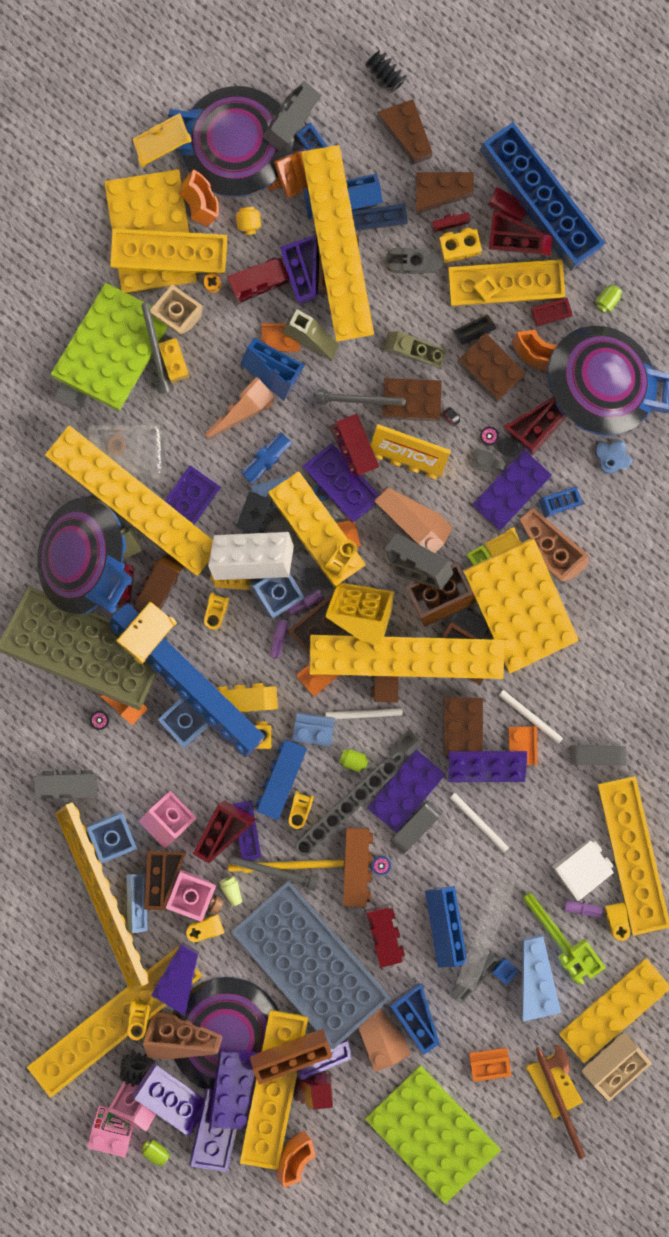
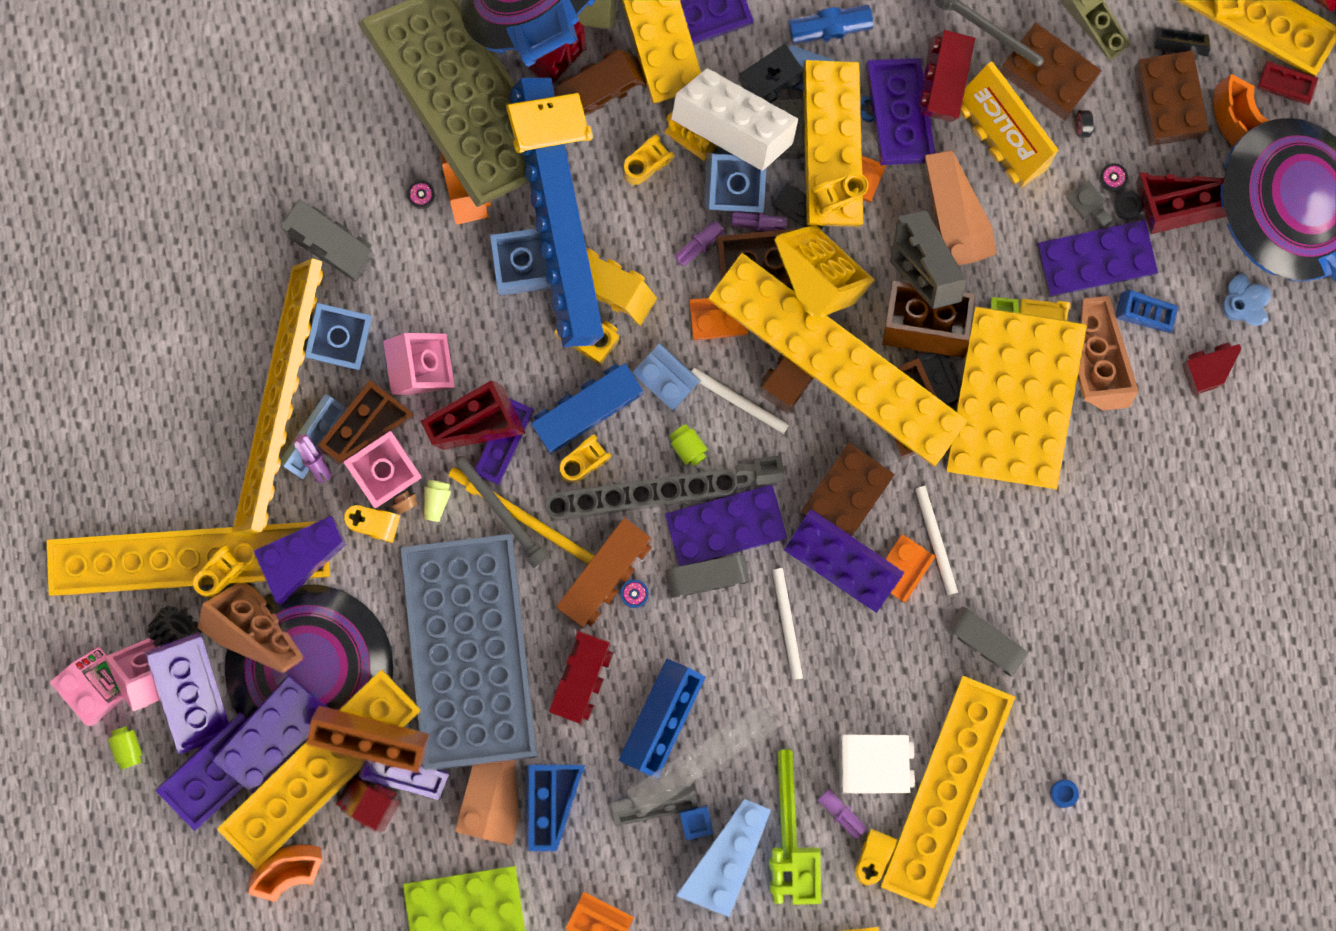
camera: 30 degrees right, 5 degrees down
(145, 916) = (312, 458): none -> medium lavender axle
(620, 511) = (1212, 369): none -> dark red slope

